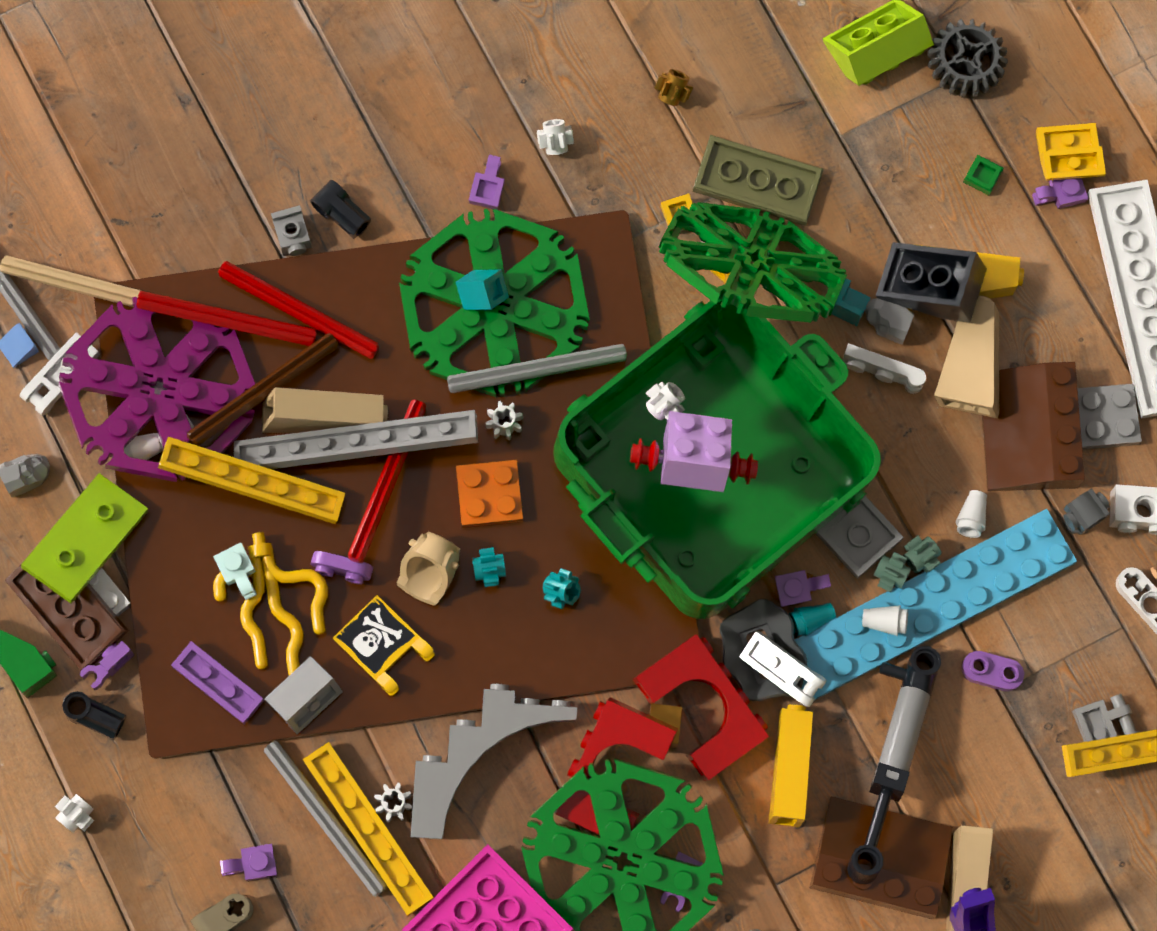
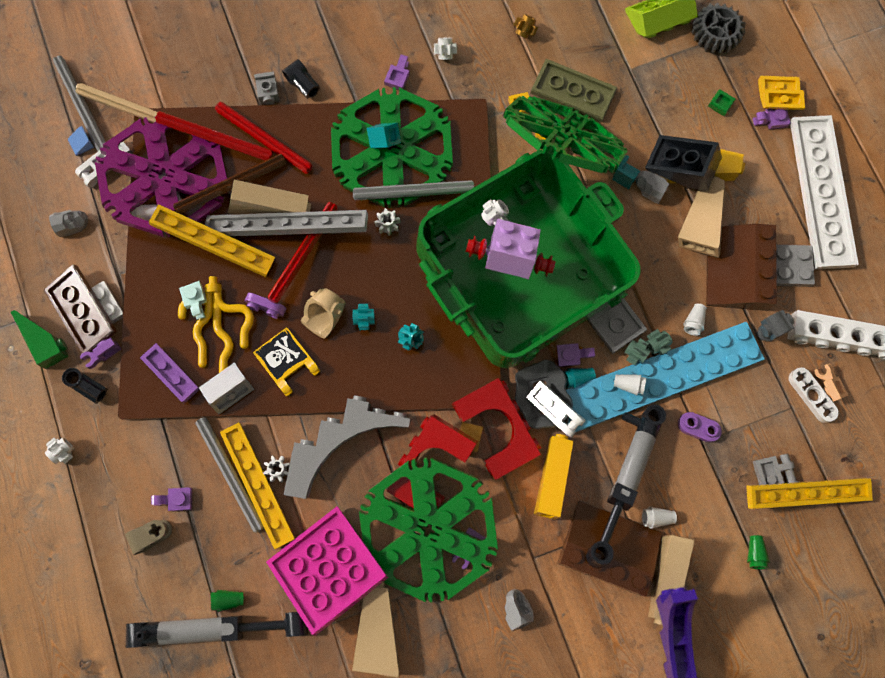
camera: 10 degrees right, 0 degrees up
(84, 538) = (96, 267): lime plate -> none
(489, 493) = (371, 269): orange plate -> none
(884, 368) = (646, 217): white plate -> none
(944, 806) = (658, 517): none -> white cone
(1089, 841) = (757, 553): none -> green cone

